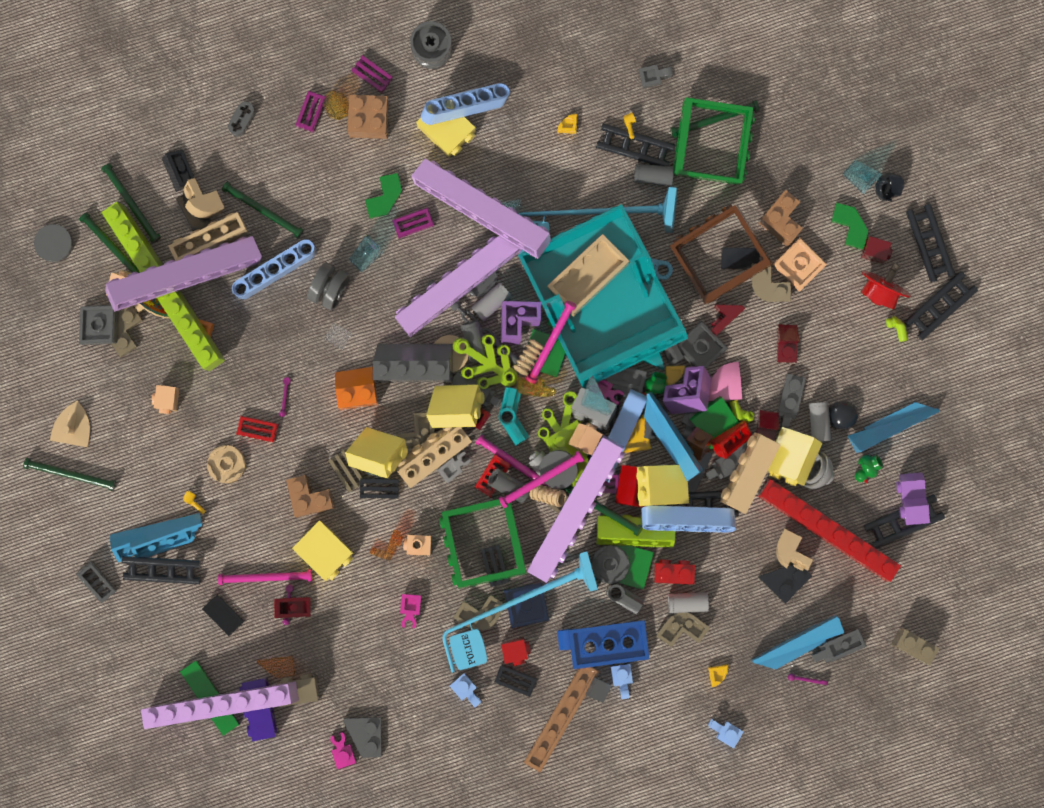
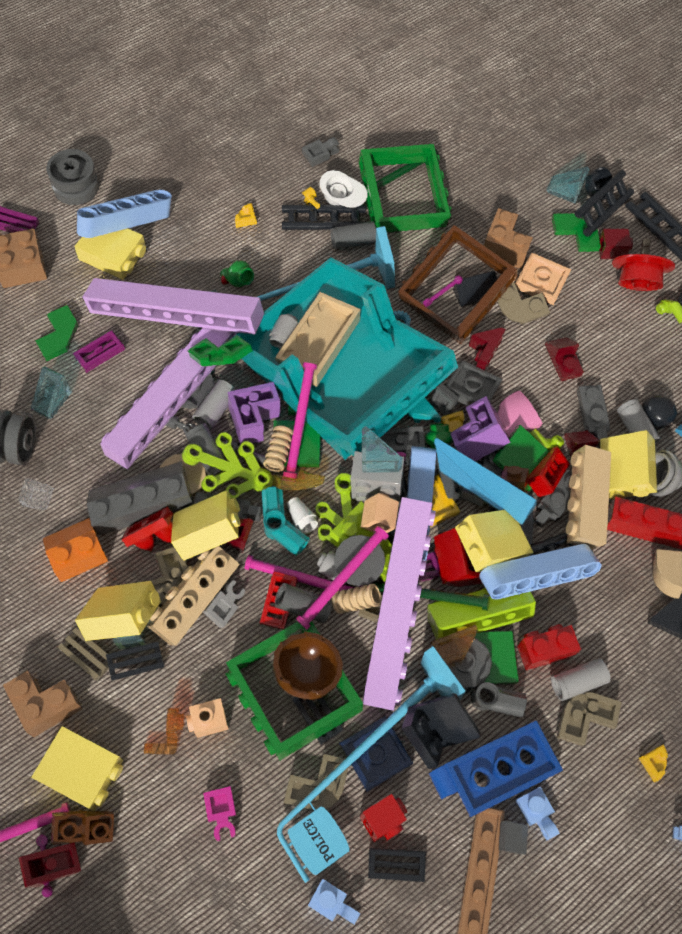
camera: 25 degrees left, 20 degrees down
(317, 588) = (83, 826): none -> reddish brown slope
(414, 391) = (141, 532): none -> red tile
(495, 537) = (307, 665): none -> reddish brown cylinder
(510, 272) = (209, 354): none -> green tile
(530, 417) = (302, 516): none -> white cone
(544, 185) = (237, 274): none -> green animal
(562, 259) = (282, 330): none -> light grey brick
(571, 602) = (438, 725): none -> black bracket
(605, 551) = (456, 645): none -> clear orange tile
(658, 129) = (342, 189): none -> white piece
(720, 255) = (457, 280): none -> magenta hinge
(875, 206) = (595, 200): none -> black bar

